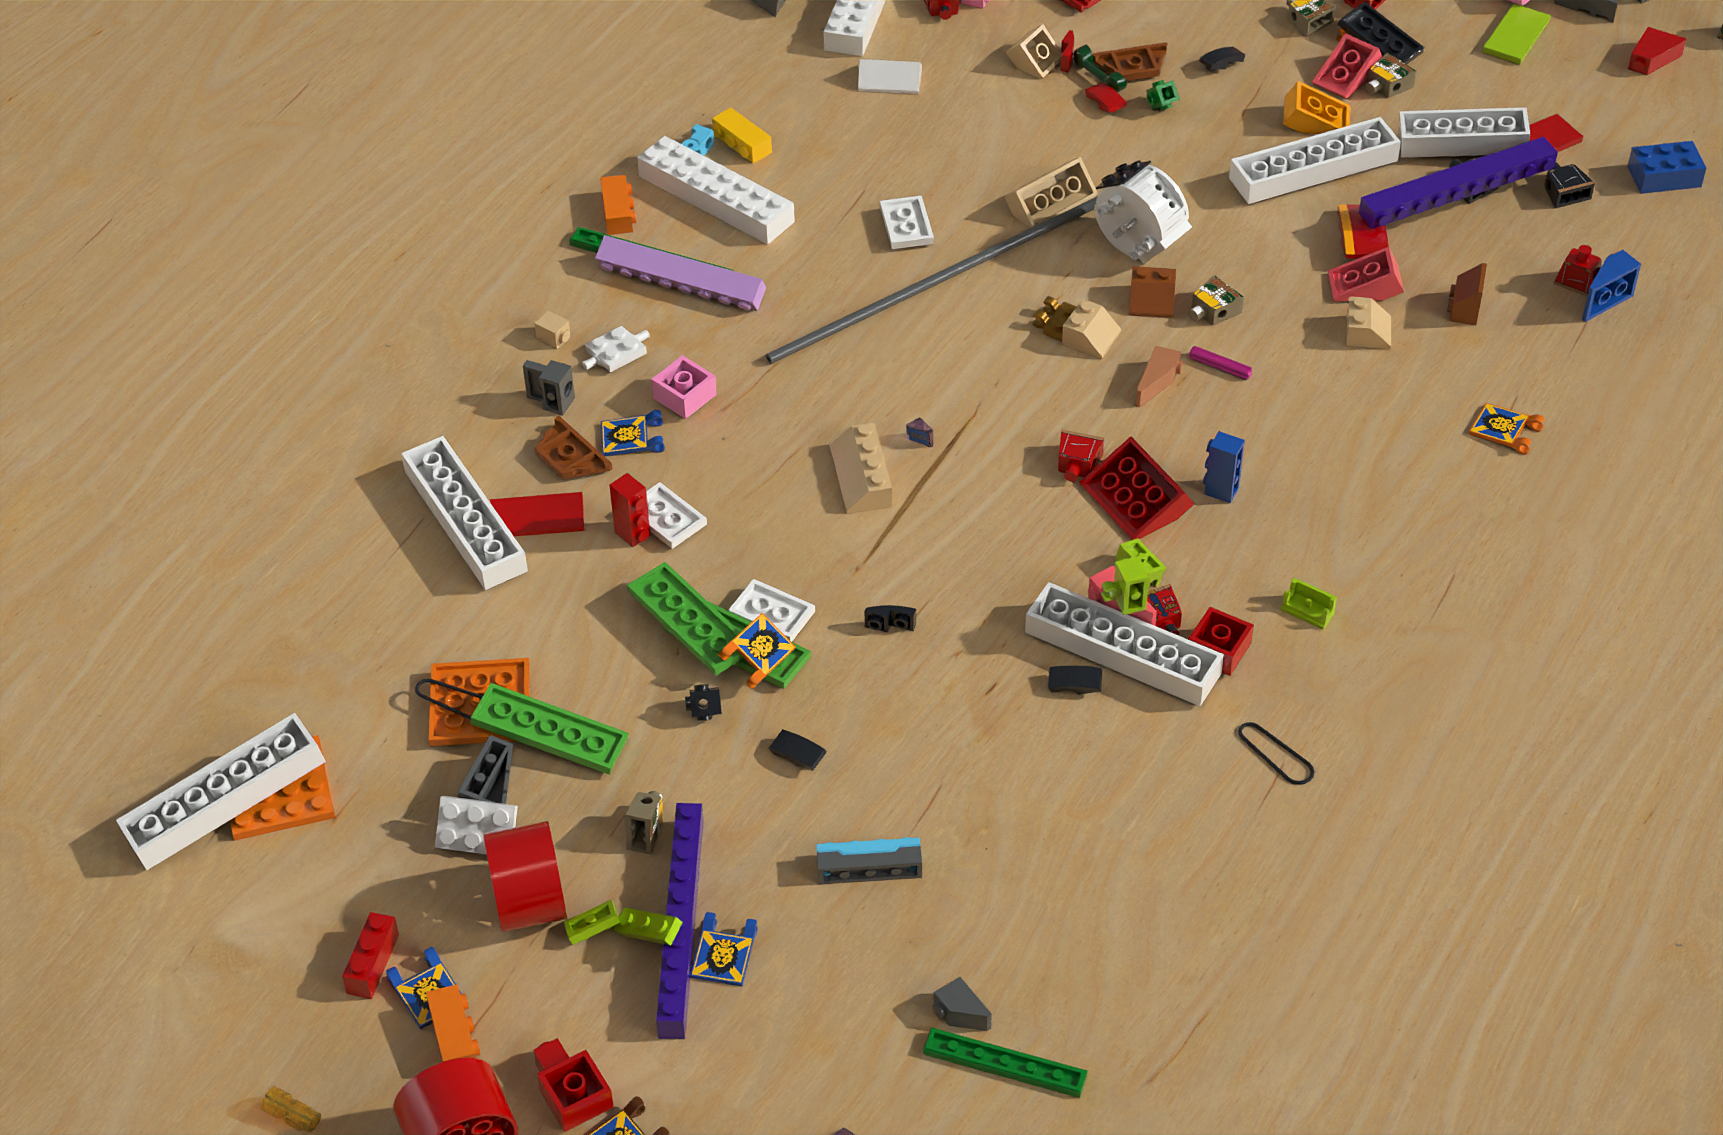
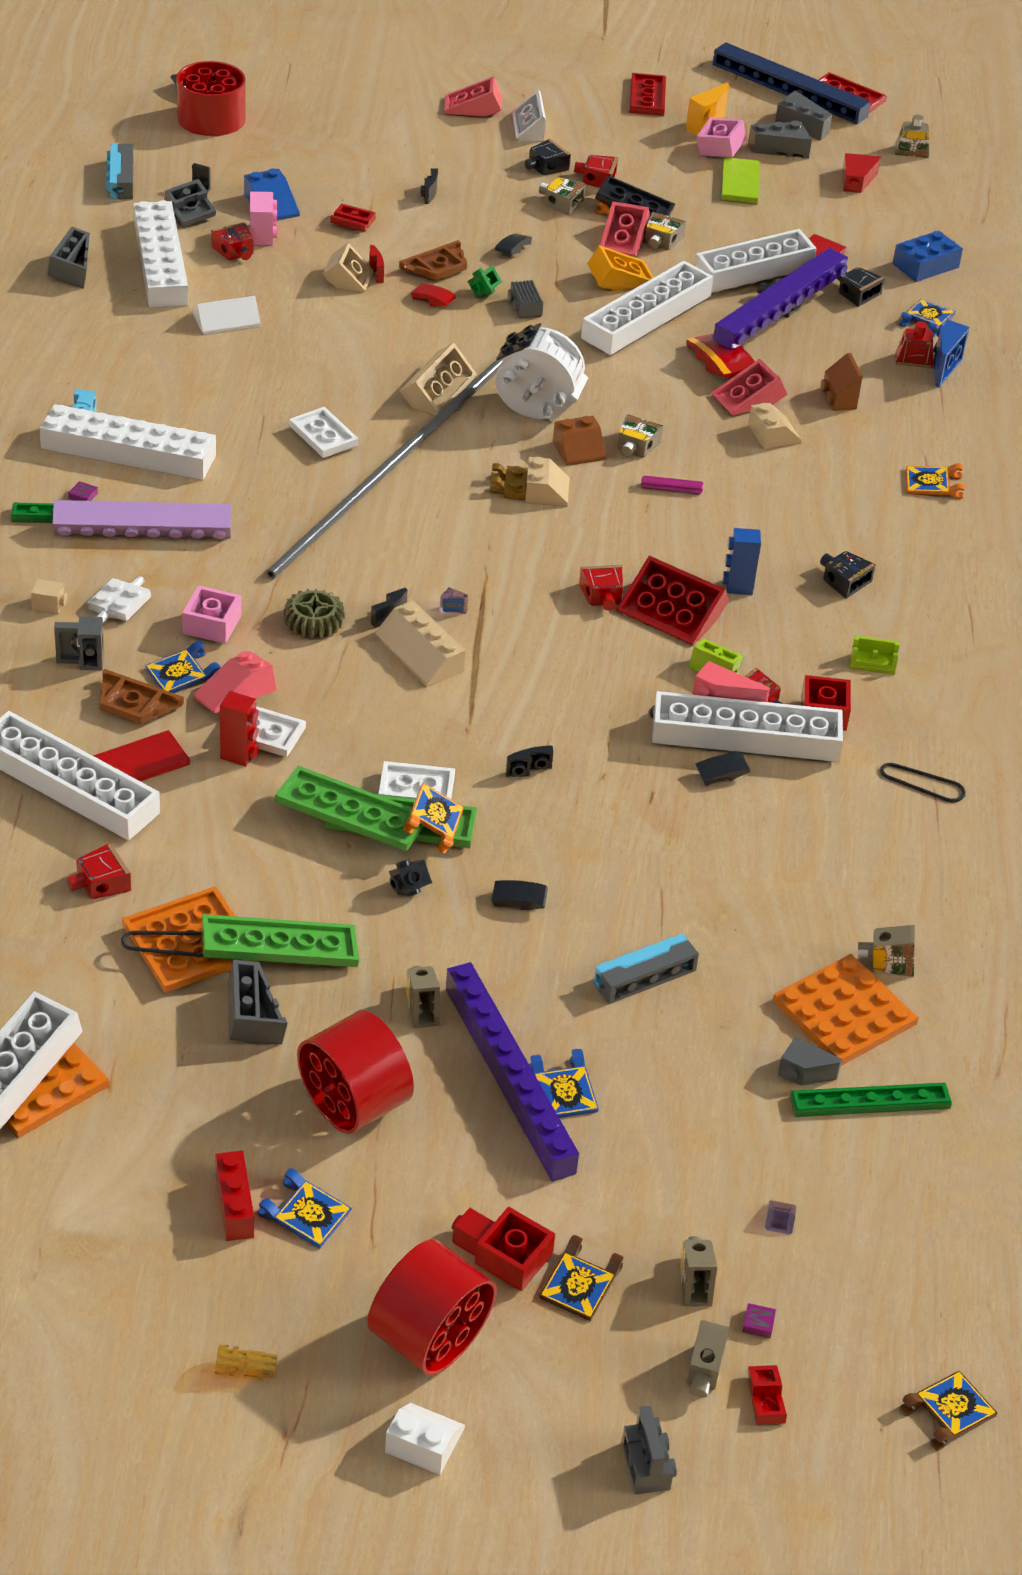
camera: 30 degrees left, 5 degrees down
(439, 615) = (101, 873): none -> red torso
(451, 1024) = (358, 1235): orange brick -> none
(466, 820) = (262, 1047): white plate -> none
(592, 922) = (430, 1098): lime plate -> none
(618, 204) = (40, 475): orange brick -> none
(648, 231) = (83, 492): none -> magenta tile
(648, 926) = (489, 1083): lime plate -> none
(666, 462) = (241, 674): none -> coral slope
(742, 135) = (123, 391): yellow brick -> none
(781, 410) = (314, 613): none -> olive gear
(862, 416) = (381, 610): none -> black slope
(1039, 964) = (845, 1009): none -> orange plate
(1084, 58) = (394, 266): dark green piece -> none
(1117, 920) = (891, 950): none -> torso
(1129, 586) = (744, 668): lime brick -> none
(1159, 373) = (628, 502): nougat slope -> none
(1196, 122) = (525, 299): none -> dark grey brick
(1339, 506) = (847, 572): none -> black torso
(1626, 234) = (927, 312): none -> flag

